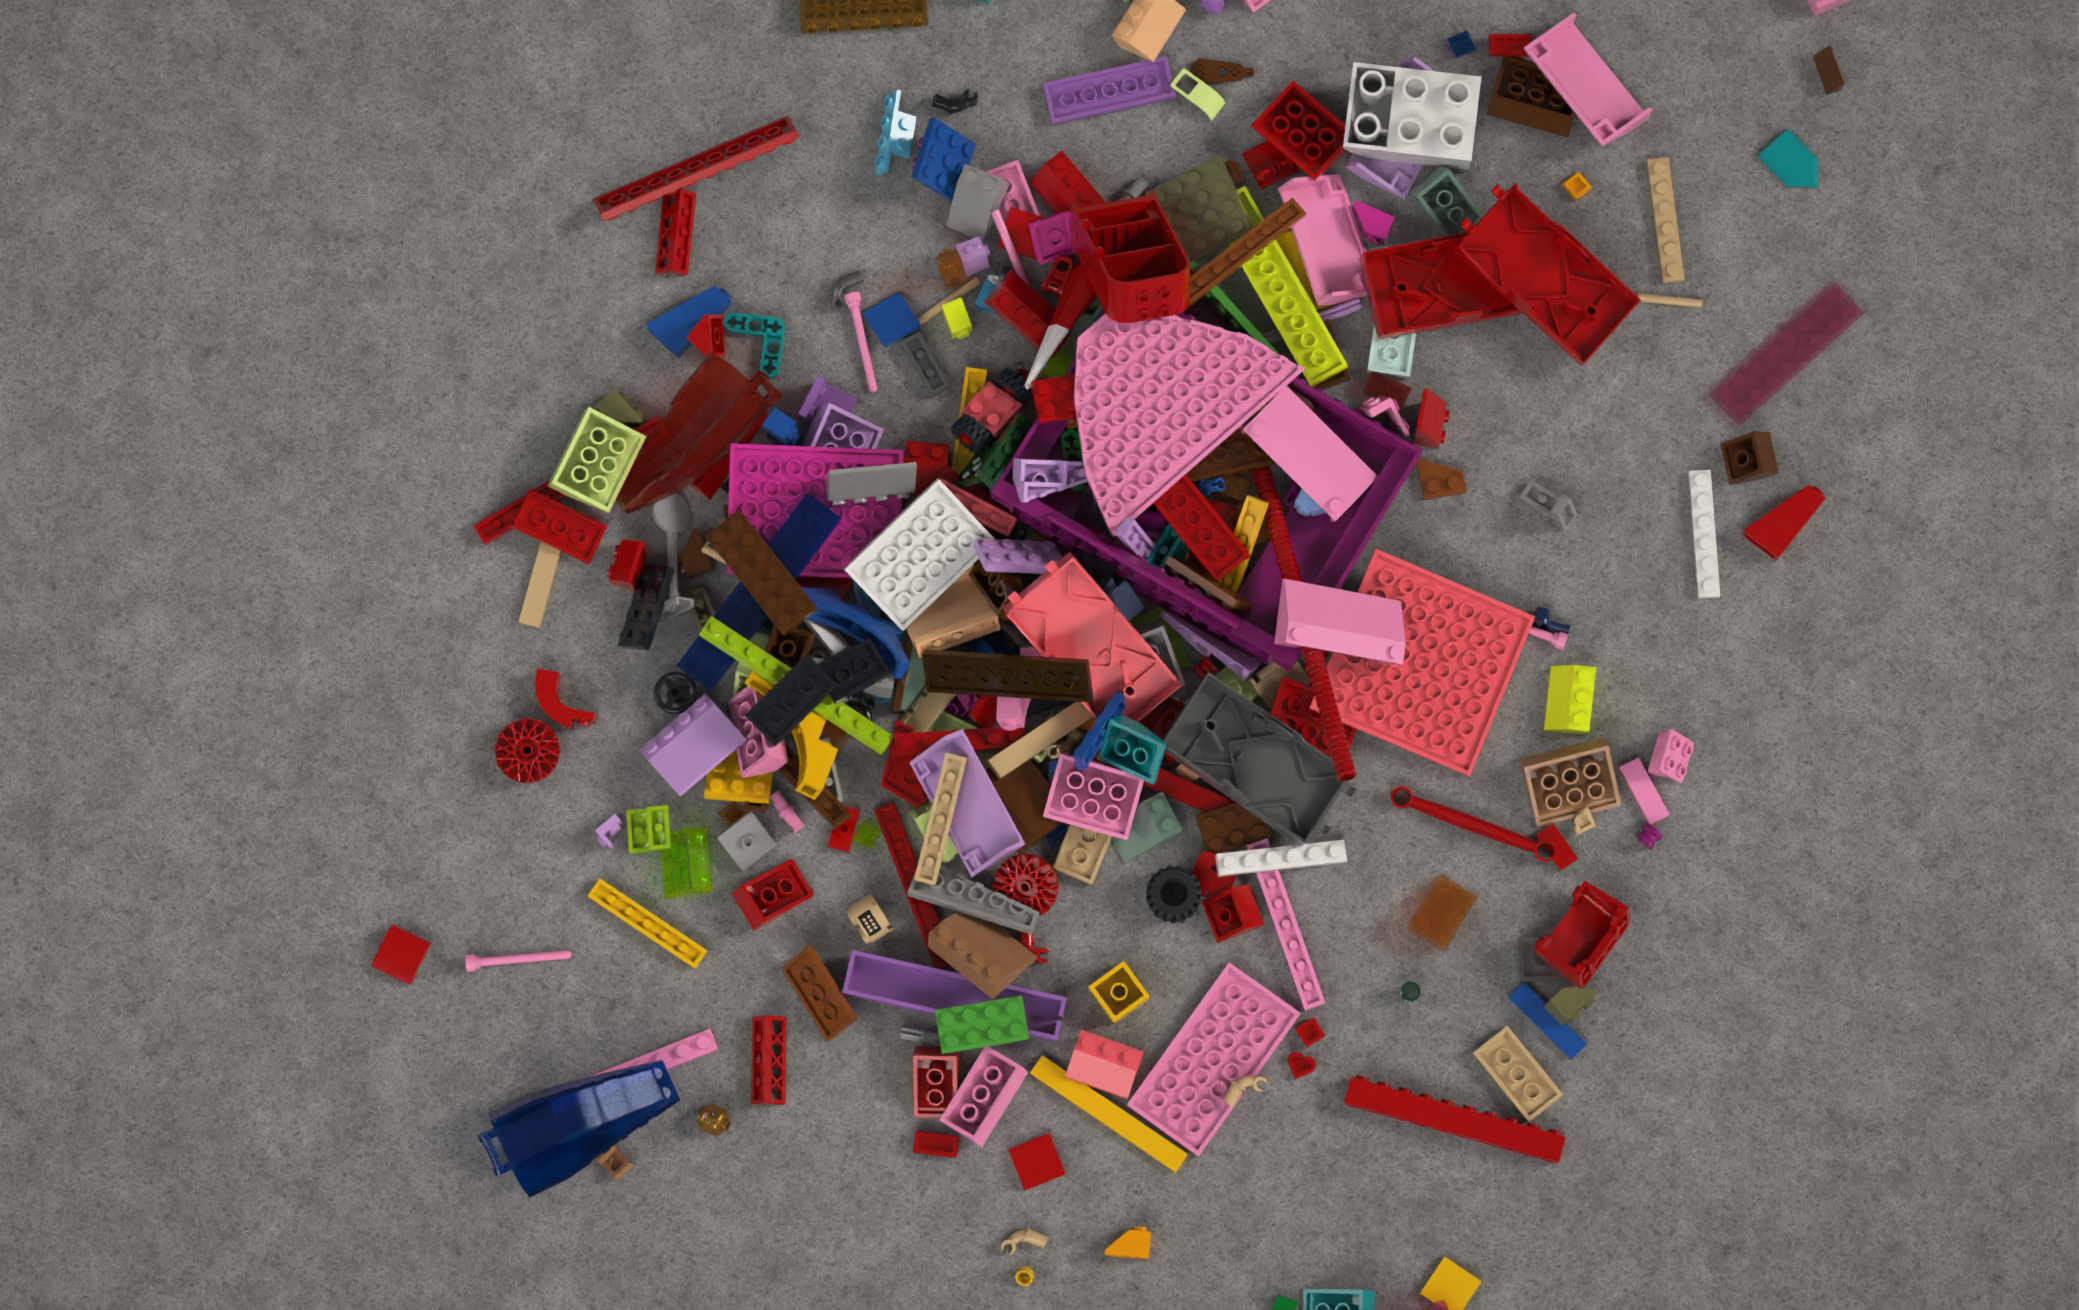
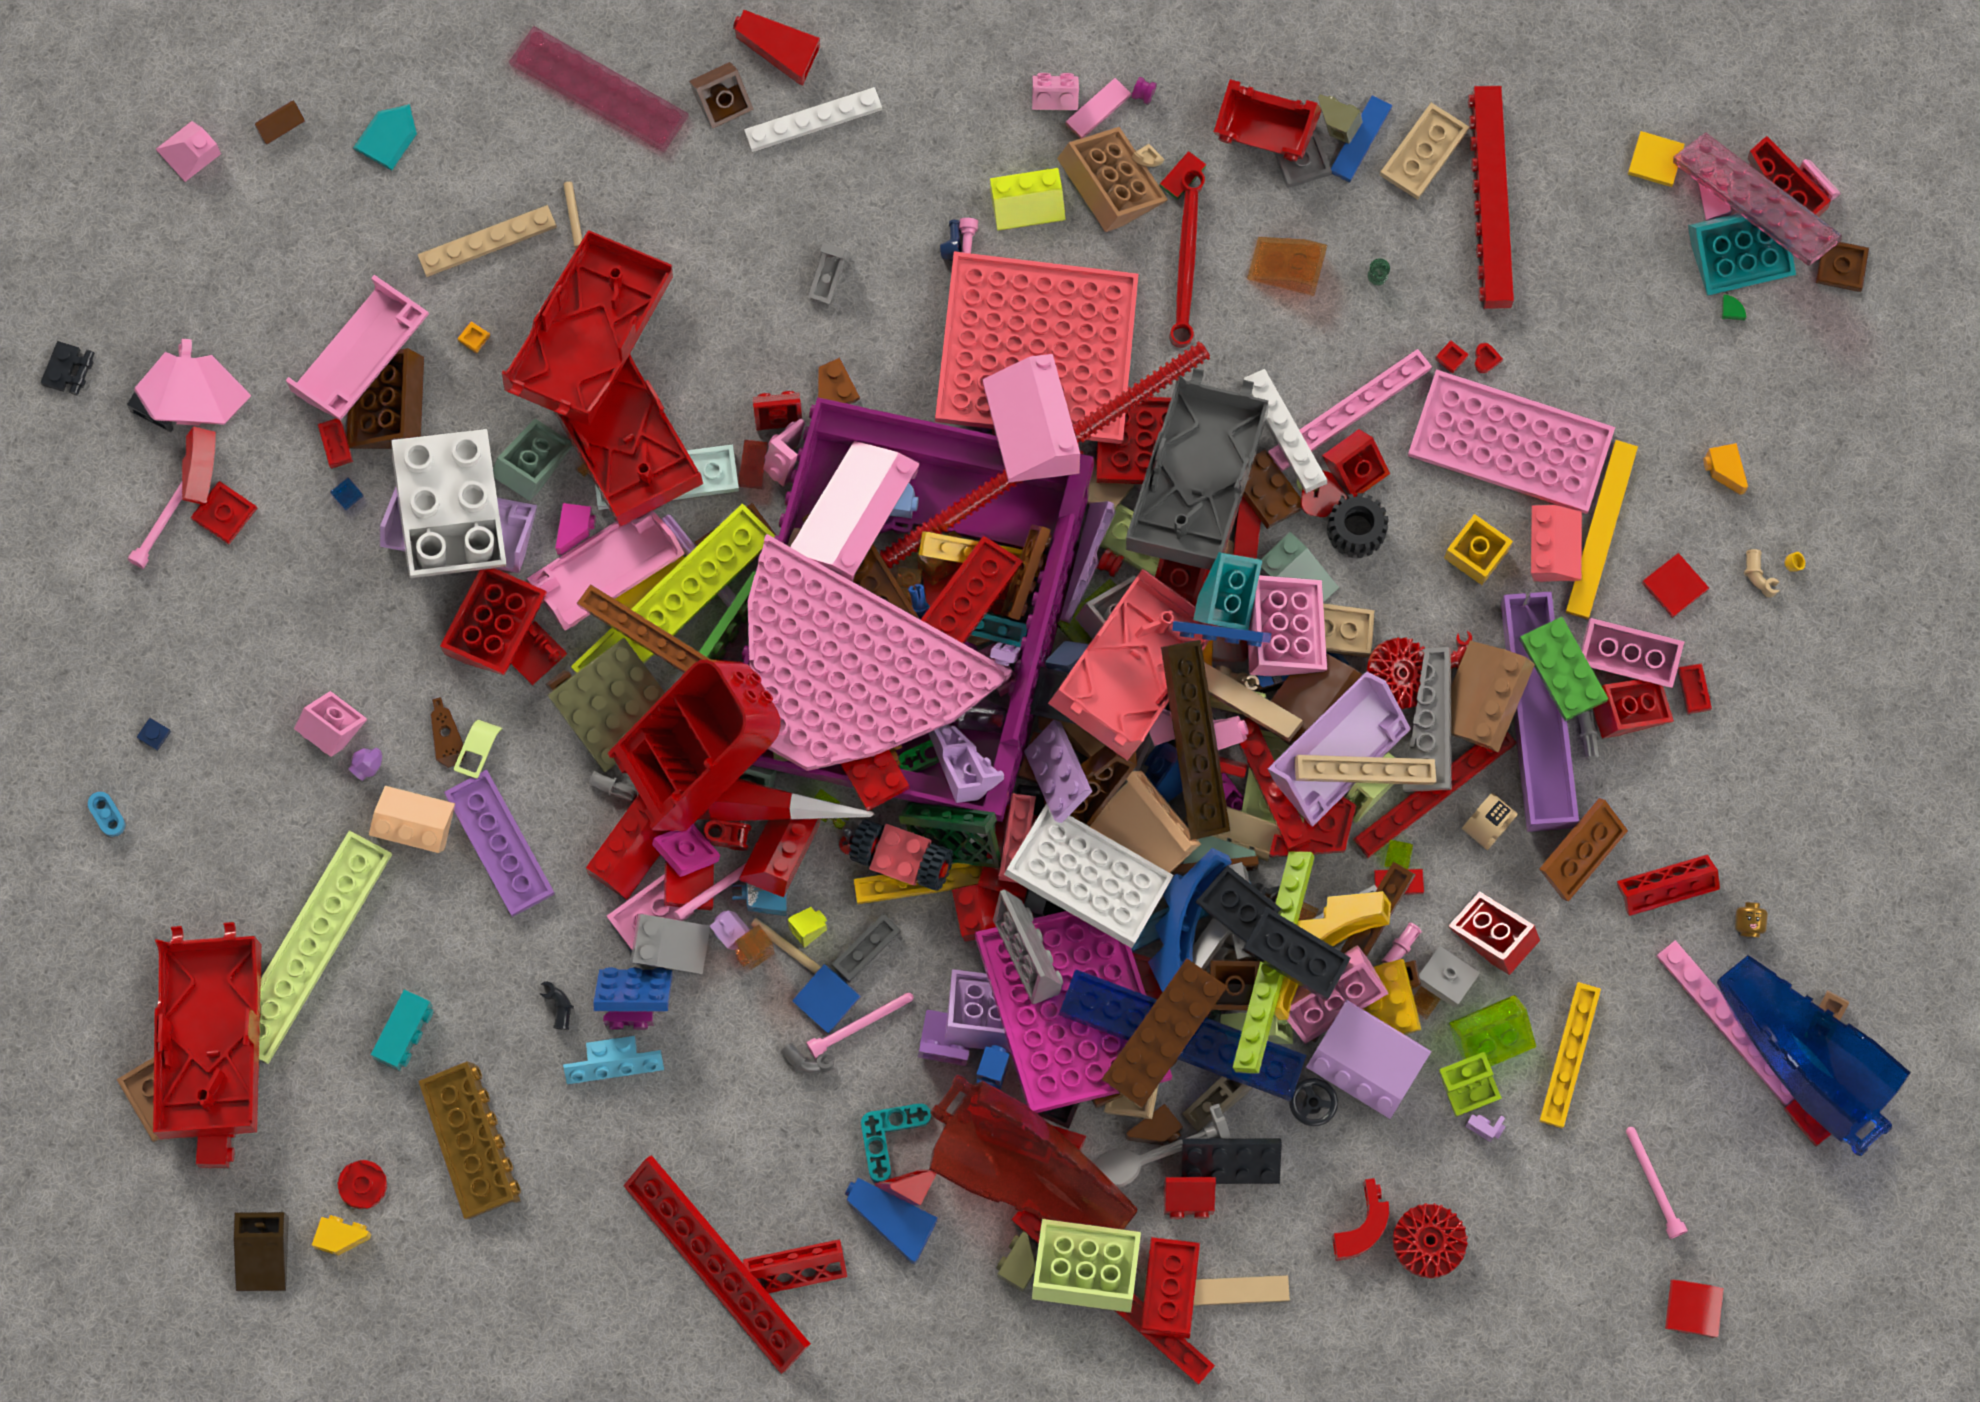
camera: 115 degrees left, 5 degrees down
(1239, 1085) = (1531, 404): tan piece -> none

